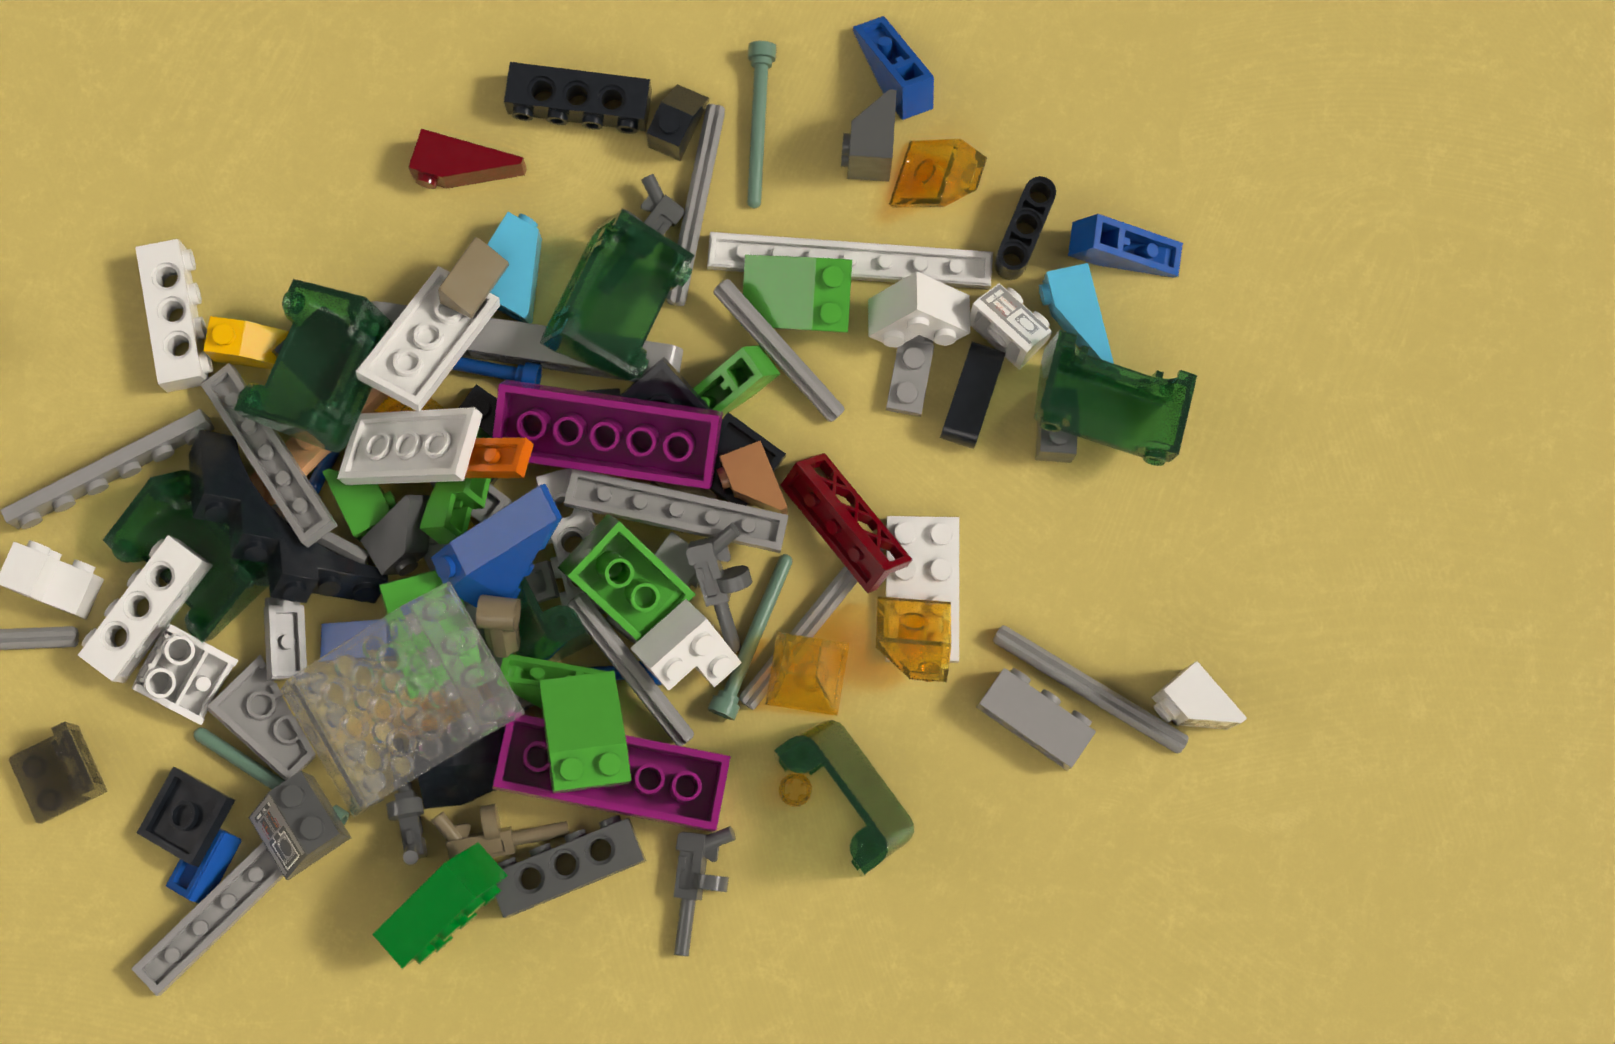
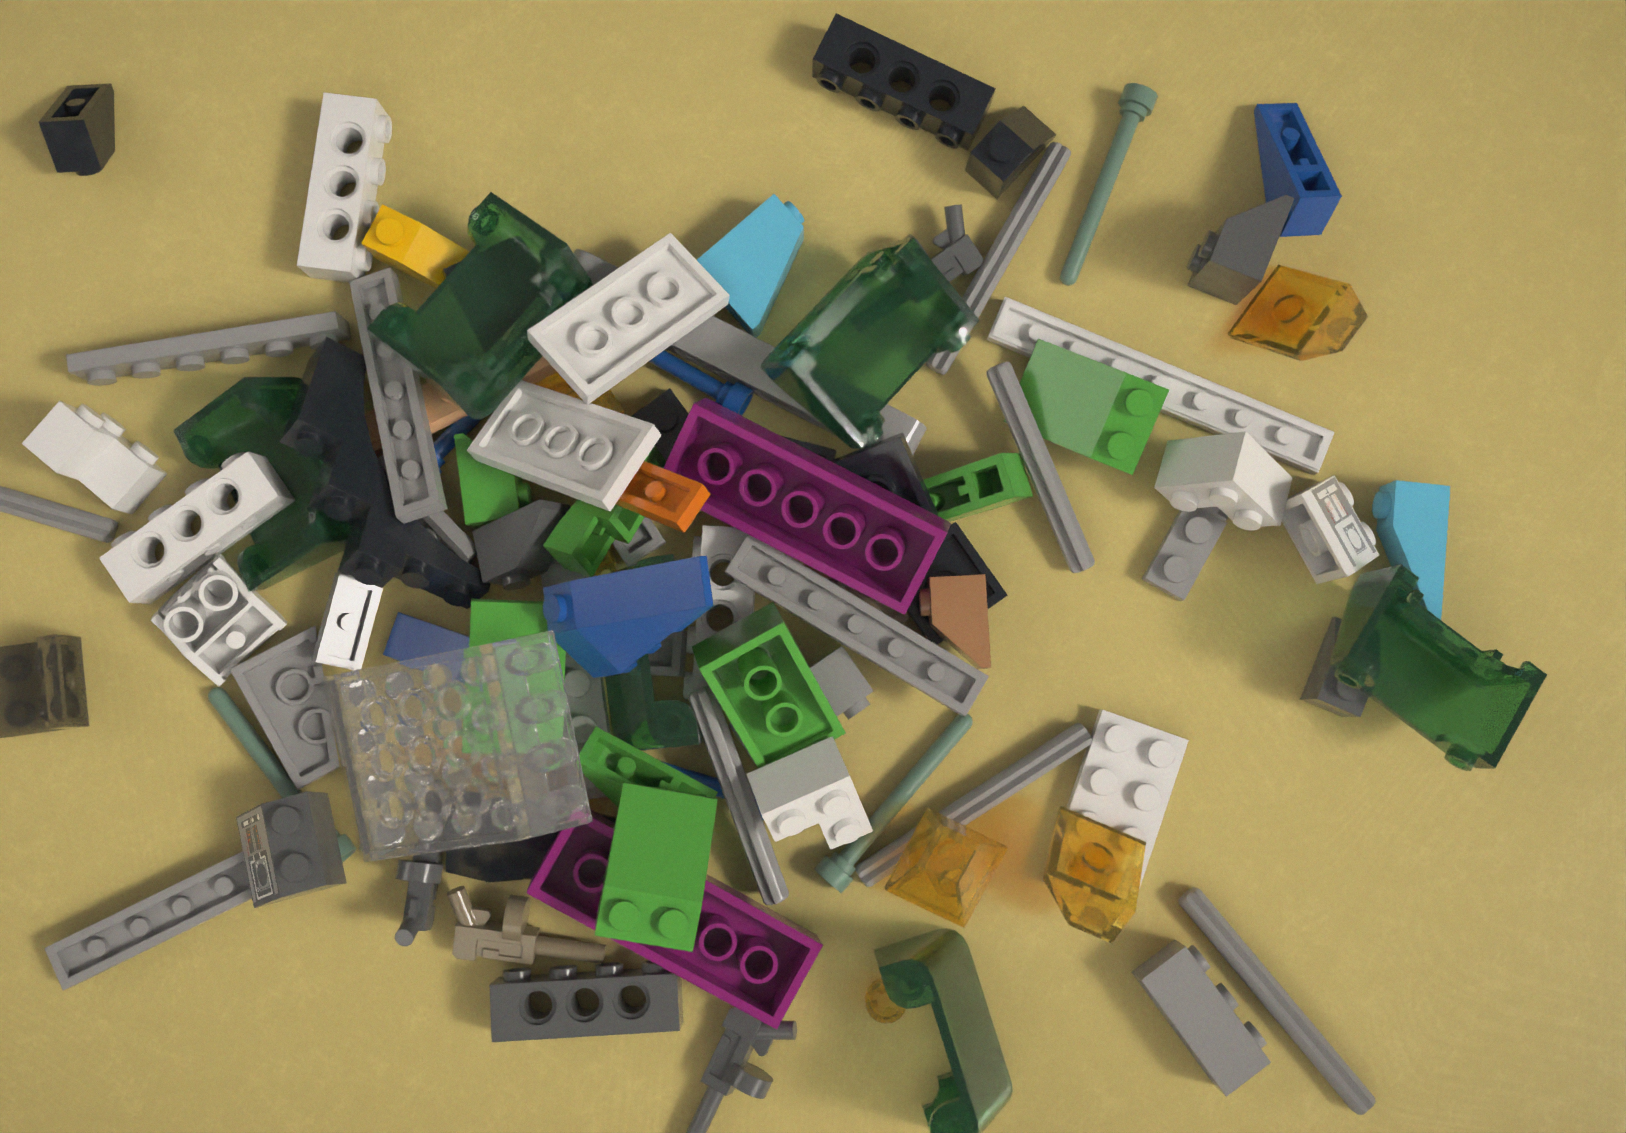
camera: 20 degrees right, 5 degrees up
(185, 816) = (164, 790): black plate -> none
(197, 882) = (171, 847): blue slope -> none
(441, 906) = (420, 1010): green brick -> none
(457, 163) = (735, 116): dark red slope -> none
(472, 278) = (704, 261): dark tan slope -> none
(500, 623) = (599, 693): dark tan piece -> none
(719, 583) = (876, 727): dark grey piece -> none
(839, 522) = (1045, 702): dark red fence -> none
(972, 395) = (1254, 598): black beam -> none
(1026, 212) = (1400, 404): black beam -> none
(1124, 246) = (1495, 477): blue slope -> none
(1196, 701) = (1406, 1064): white slope -> none

